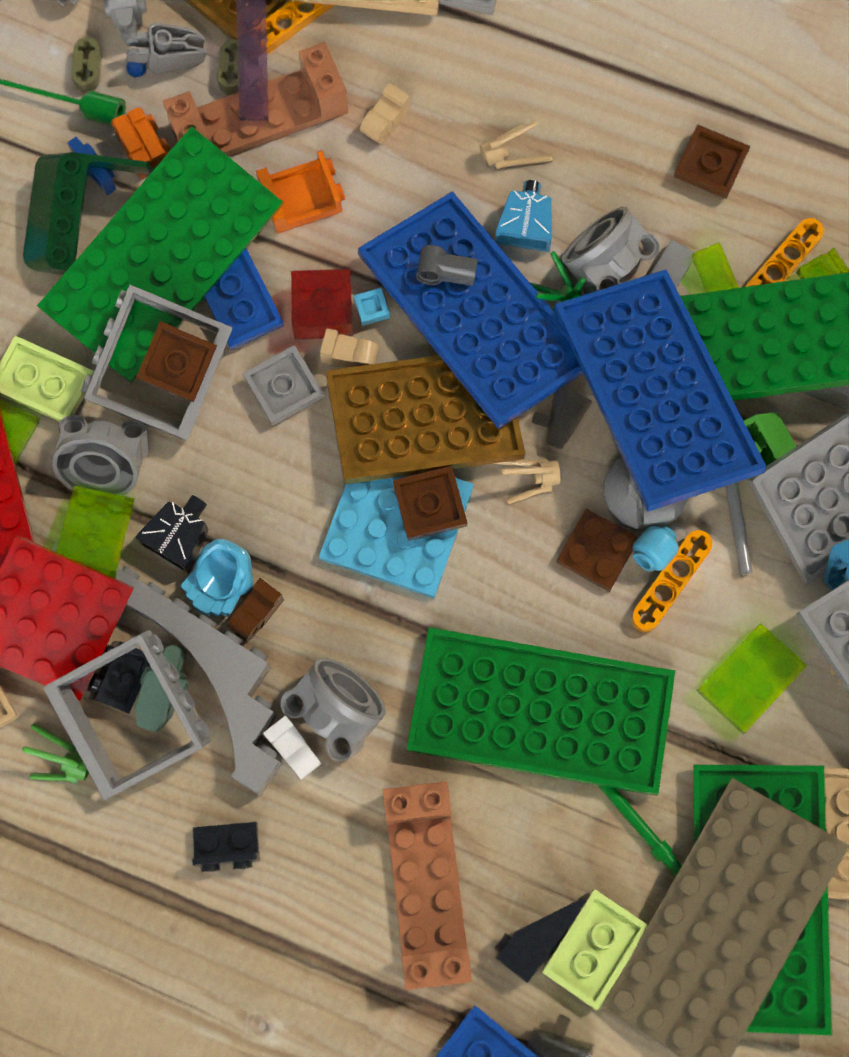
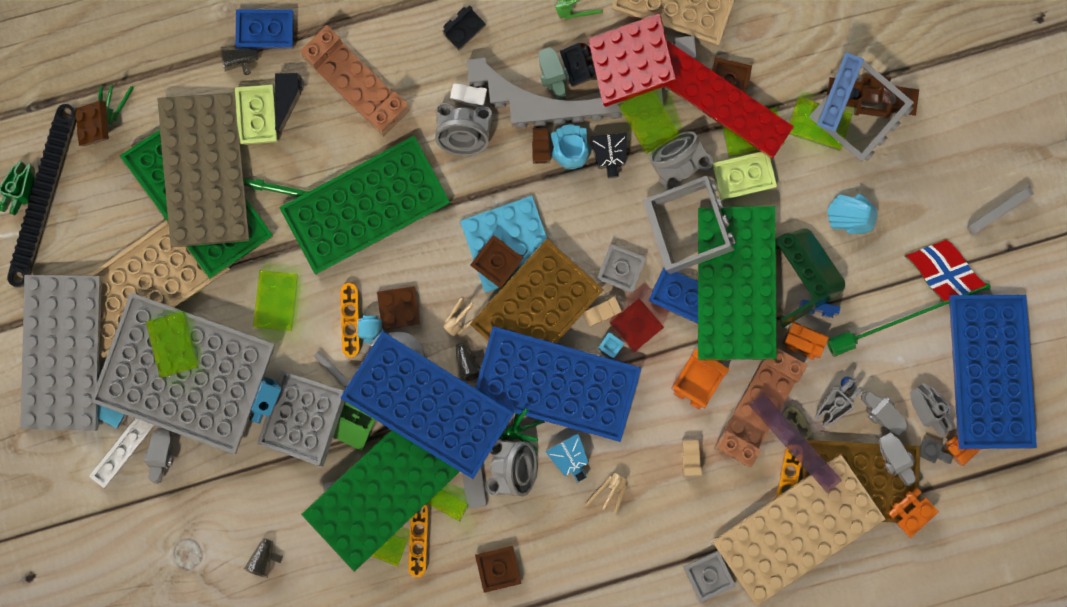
camera: 140 degrees right, 10 degrees up
(87, 741) = (564, 20): light grey window -> none
(93, 64) = (877, 360): olive beam -> none
(176, 361) = (676, 229): reddish brown plate -> none
(439, 266) = (590, 387): dark grey piece -> none

